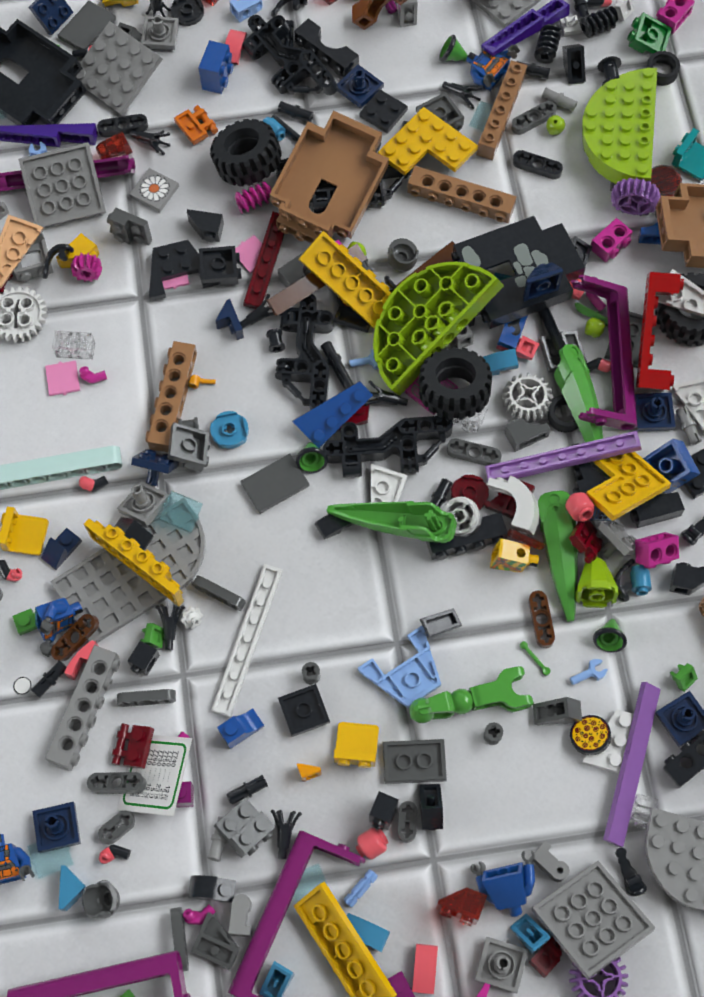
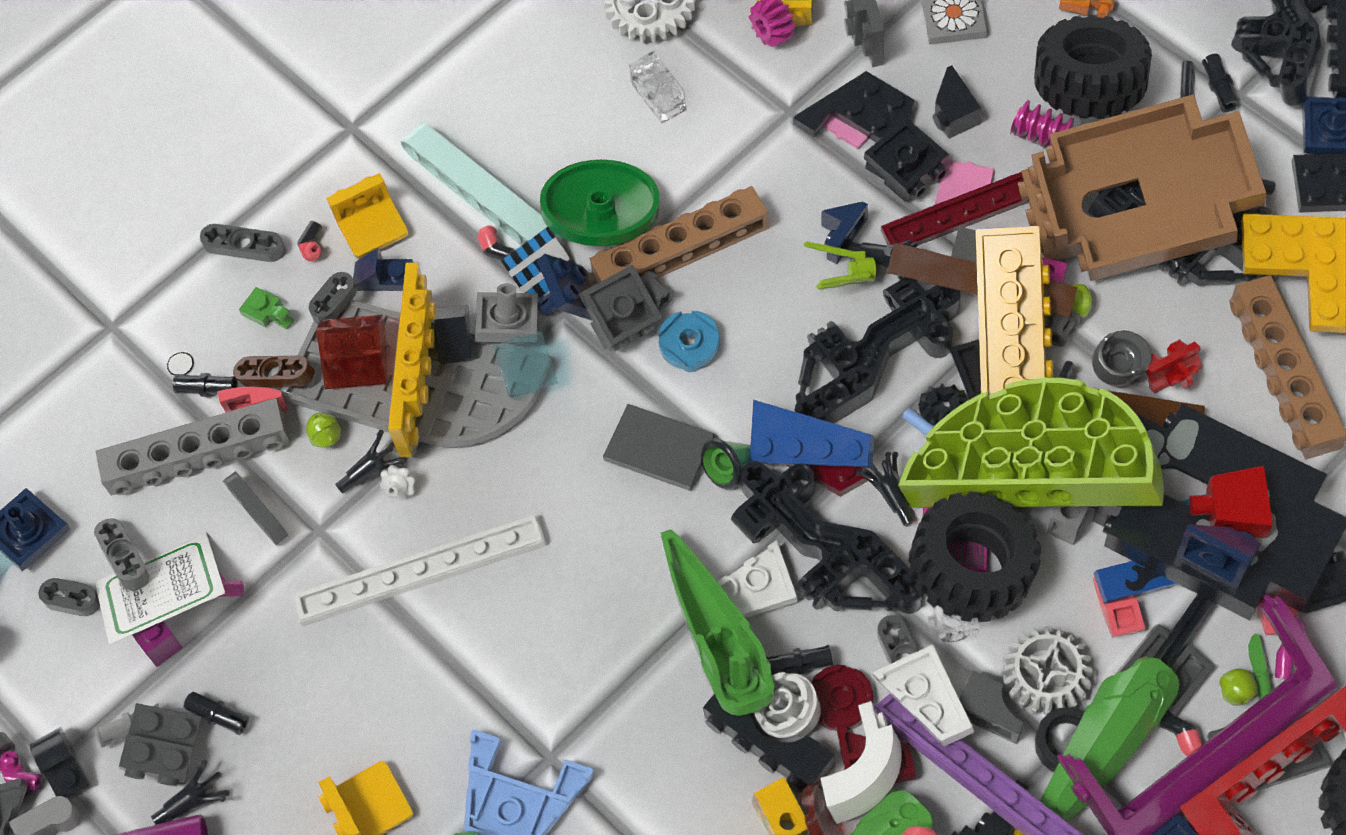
camera: 60 degrees right, 5 degrees down
(53, 581) = (333, 298): none -> dark grey beam
(53, 619) = (271, 329): blue torso -> none
(62, 378) = (608, 111): bright pink piece -> none
(92, 377) = (634, 139): dark pink arm -> none
(101, 588) = (353, 351): none -> clear red slope
(113, 852) = (35, 615): arm -> none
(118, 416) = (599, 202): none -> green dish
(122, 471) = (523, 263): none -> sticker
(130, 635) = (323, 430): none -> lime piece
(138, 746) = (185, 544): dark red plate -> none
(143, 658) = (303, 467): black brick -> none
(153, 635) = (340, 456): bright green tile -> none
(195, 380) = (725, 252): light orange hand -> none
(218, 593) = (454, 490): dark grey beam -> none
(240, 728) = (290, 645): blue arch -> none
(260, 329) = (858, 270): none -> lime plant
(275, 340) = (860, 301): black bush -> none
(278, 129) = (1166, 75): dark azure brick -> none
(304, 710) = (369, 705): black plate -> none
(308, 772) = (286, 768): light orange slope -> none
(309, 667) = (417, 672): dark grey bush -> none
(331, 525) = (649, 555): black slope -> none
(335, 361) = (892, 391): black pin -> none
(365, 349) = (929, 405): none -> black gear
(426, 237) = (1175, 368): none -> red hips
(440, 622) = (615, 790): tile -> none
(501, 452) = (927, 694): none -> white wing
(502, 361) = (1068, 595): dark azure slope -> none
(522, 258) = (1236, 502): none -> red torso

